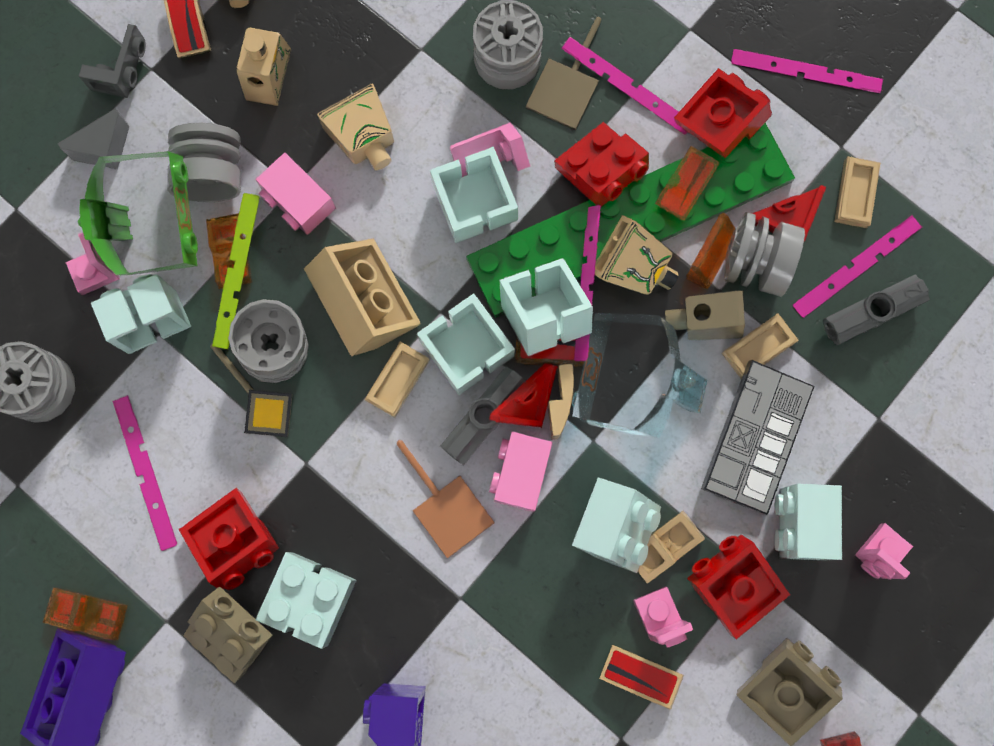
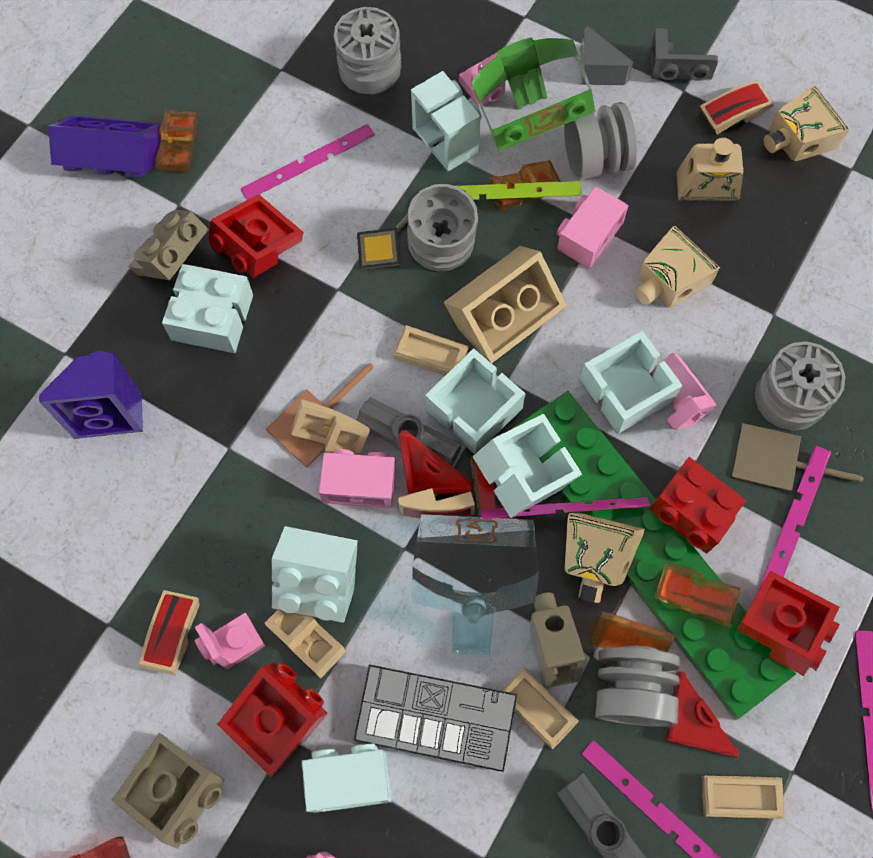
camera: 80 degrees right, 10 degrees down
(466, 487) = (329, 427): none -> tan slope

